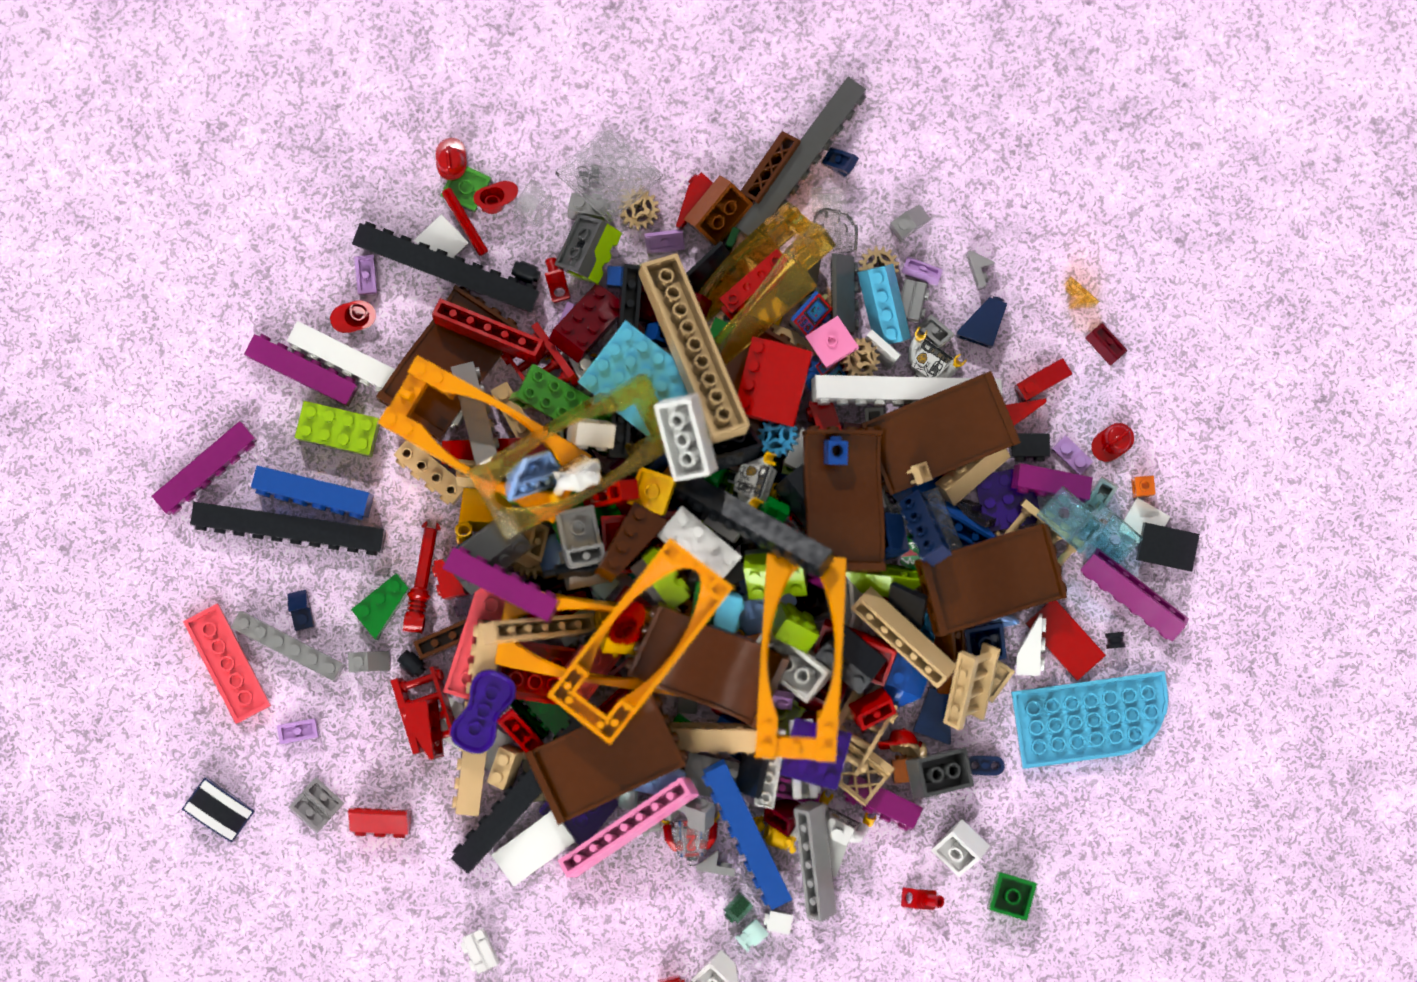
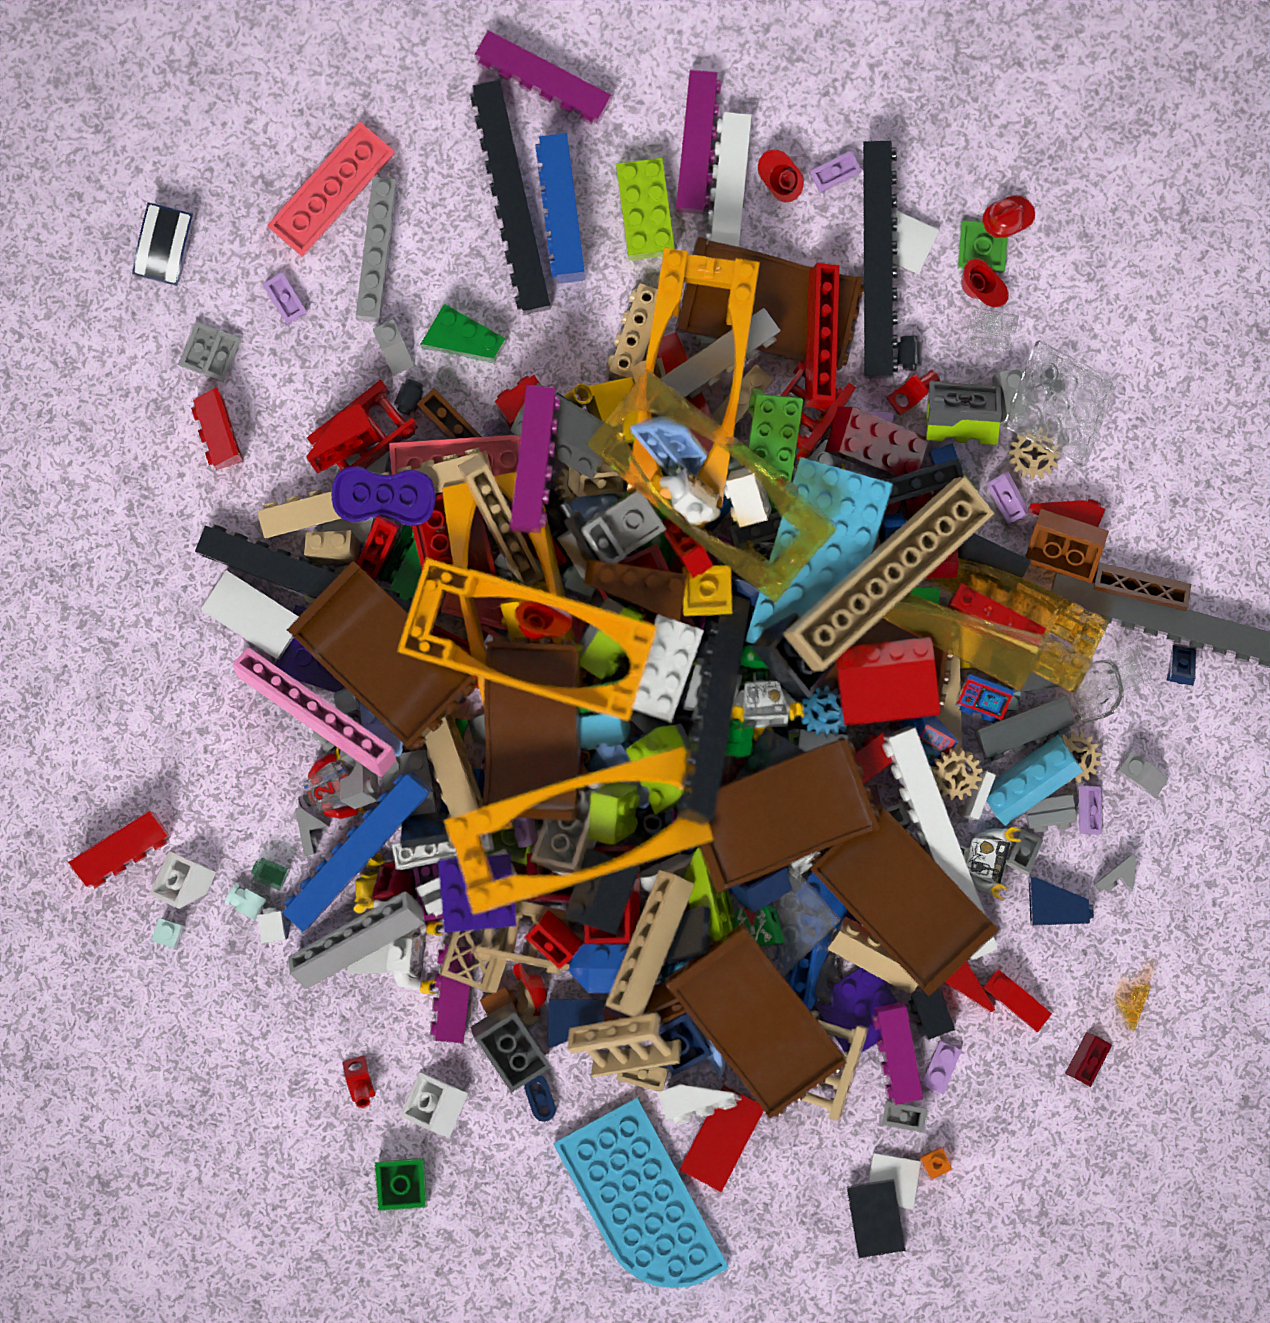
camera: 70 degrees right, 0 degrees up
(300, 610) = (424, 247): dark blue slope -> none
(419, 595) = (460, 380): red piece -> none
(464, 221) = (941, 260): red axle -> none
(480, 951) = (113, 599): white brick -> none
(686, 437) = (780, 602): white brick -> none
(732, 239) = (1039, 574): dark green tile -> none
(832, 342) = (961, 733): bright pink plate -> none
(842, 457) = (828, 792): blue brick -> none
(921, 473) = (847, 893): tan tile -> none
(925, 528) = (784, 919): dark blue brick -> none
(1089, 525) = (860, 1109): clear light blue bracket -> none
(1112, 442) = (975, 1109): red piece -> none
(1115, 640) = (743, 1196): black wheel -> none
(1134, 594) = (804, 1199): magenta brick -> none

